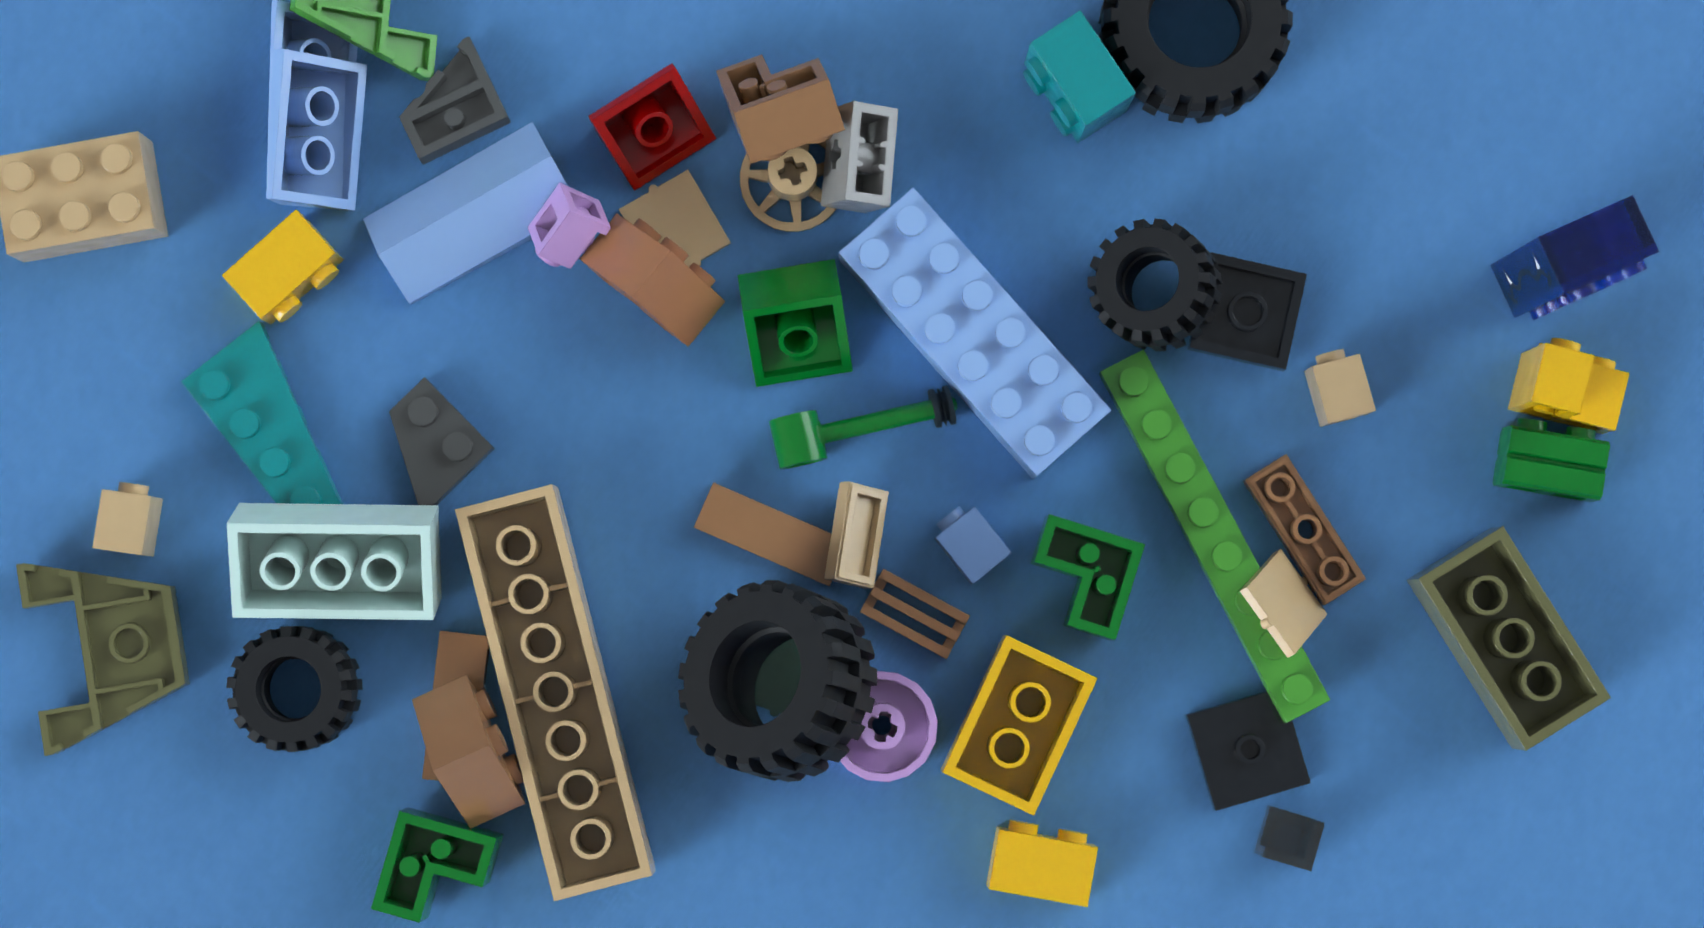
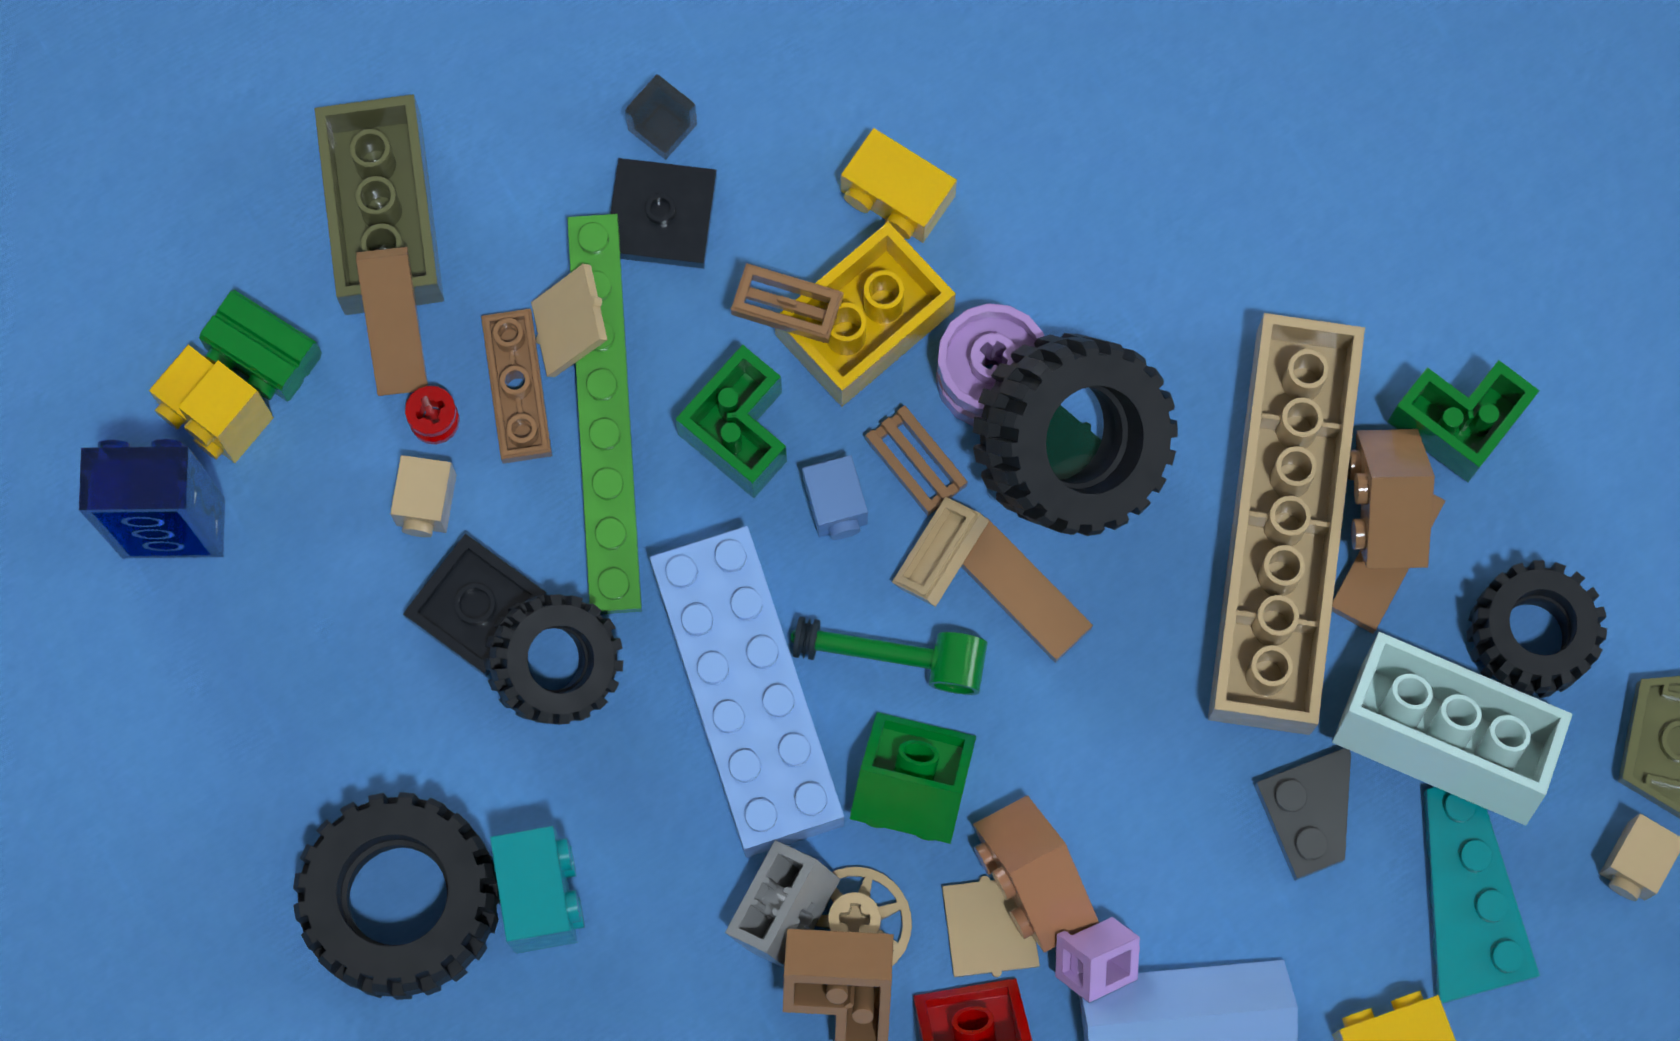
camera: 155 degrees left, 10 degrees down
(1049, 698) = (781, 321): none -> medium nougat tile
(1359, 473) = (436, 425): none -> red wheel
(1443, 529) = (392, 320): none -> medium nougat tile

